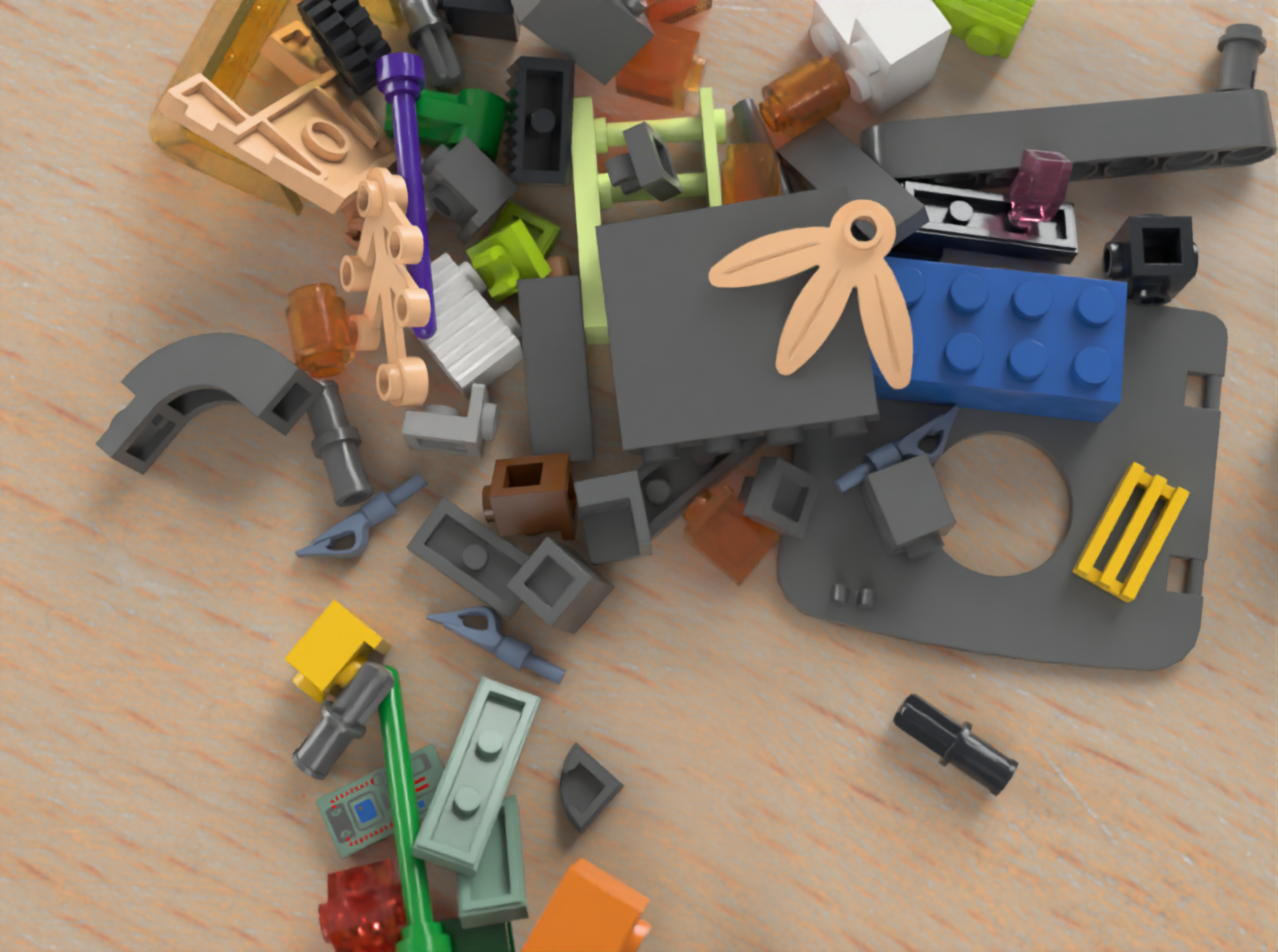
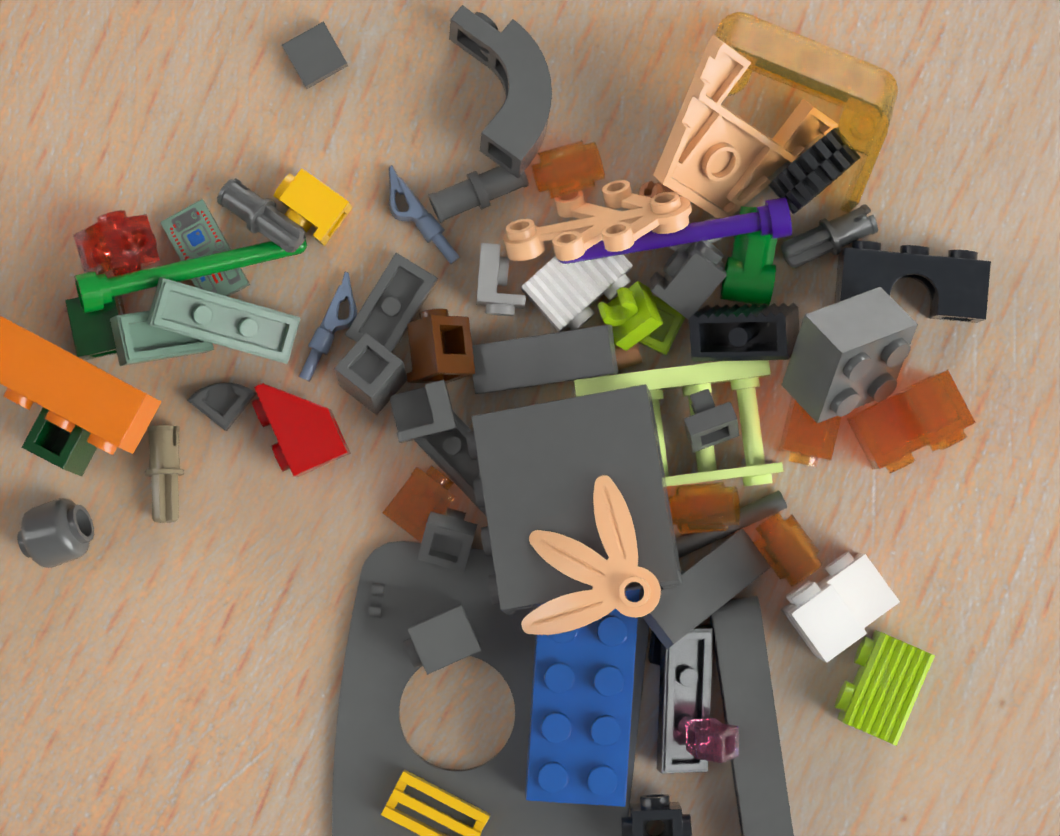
camera: 85 degrees right, 10 degrees up
(143, 643) = (315, 55): none -> dark grey tile
(628, 677) = (304, 430): none -> red slope
(677, 868) = (164, 472): none -> dark tan axle
(901, 450) = (493, 637): sand blue hand -> none
(955, 743) = (267, 680): black axle -> none

